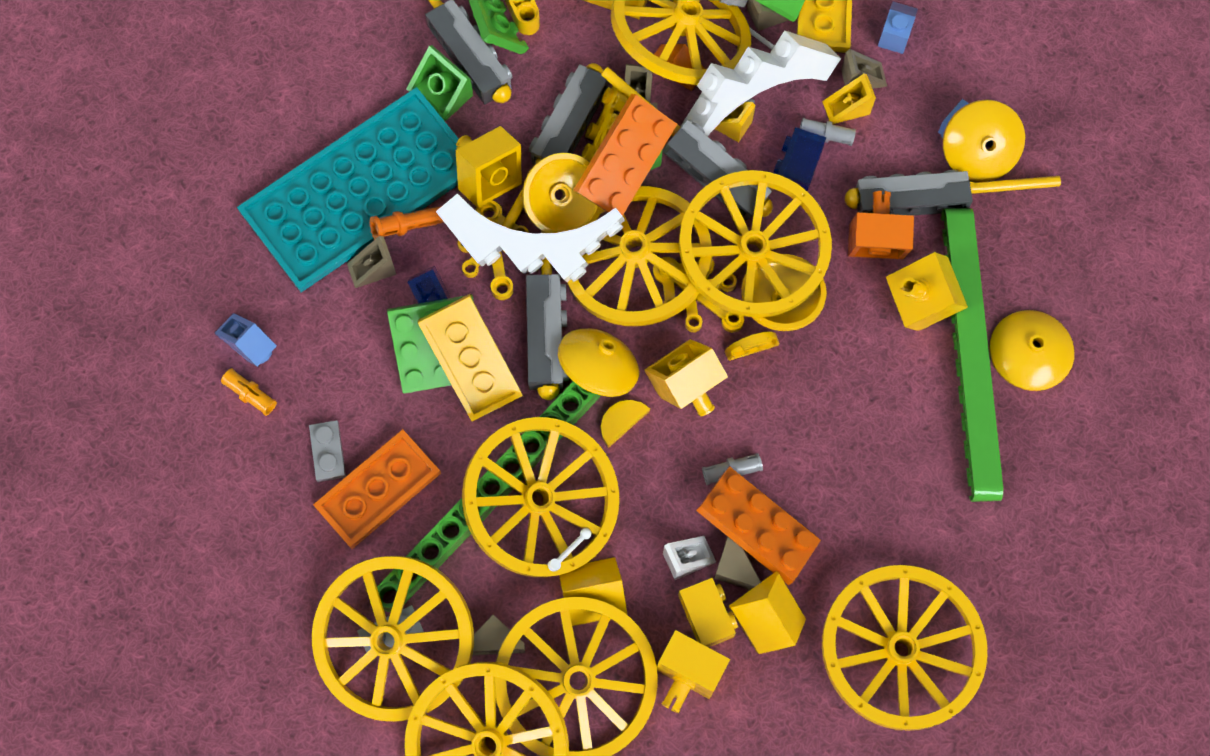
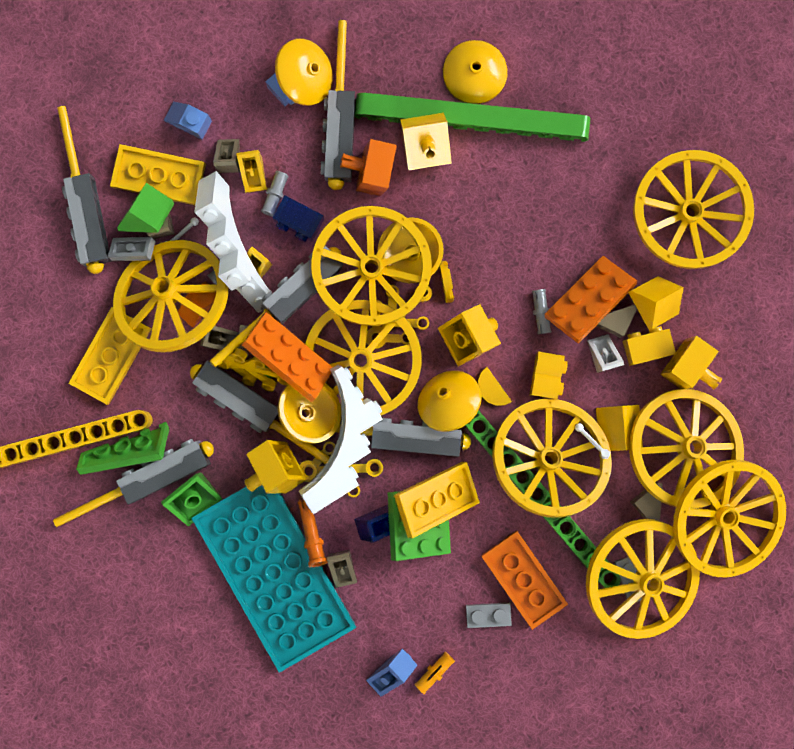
camera: 85 degrees left, 15 degrees up
(649, 485) = (547, 375): none -> yellow brick

